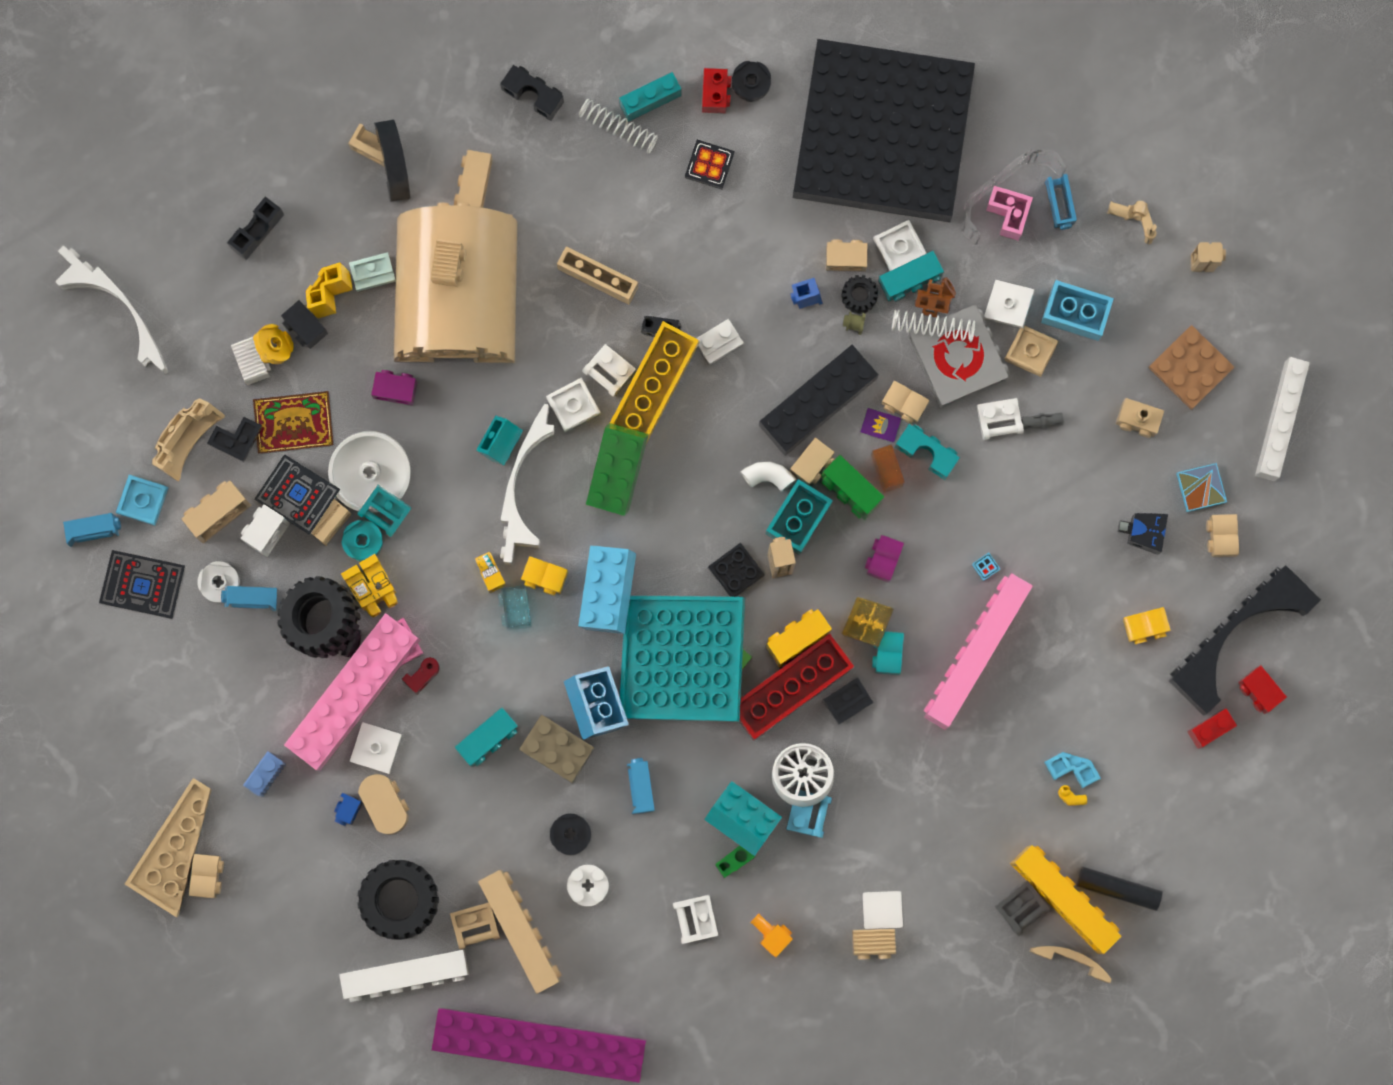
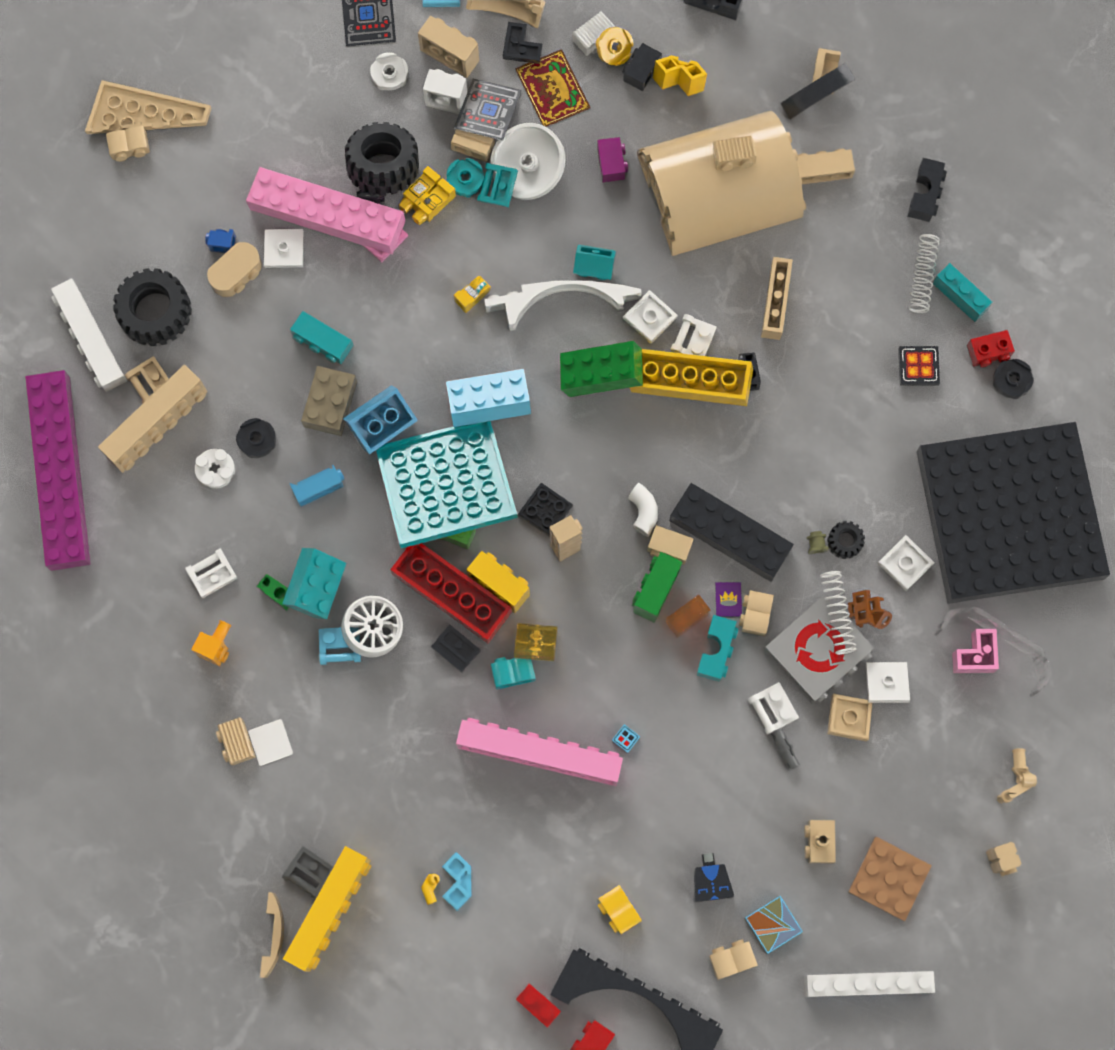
camera: 75 degrees right, 5 degrees down
(249, 597) = (382, 98): dark azure window -> none
(264, 774) = (231, 162): medium blue brick -> none
(372, 272) = (710, 108): light aqua plate -> none
(422, 677) = (356, 265): dark red leg -> none
(515, 608) = (446, 325): clear light blue brick -> none
(544, 575) = (484, 341): yellow brick -> none
(719, 341) = (755, 427): white plate -> none
(799, 515) = (613, 547): teal brick -> none
(806, 293) = (828, 490): blue brick -> none
(846, 256) = (878, 515): tan brick -> none
(884, 558) = (601, 640): magenta brick -> none
(911, 276) = (880, 581): teal brick -> none
(1061, 202) = (1005, 701): dark azure window -> none
(1077, 310) = (904, 748): medium azure brick -> none
(1119, 888) = (356, 961): black brick -> none

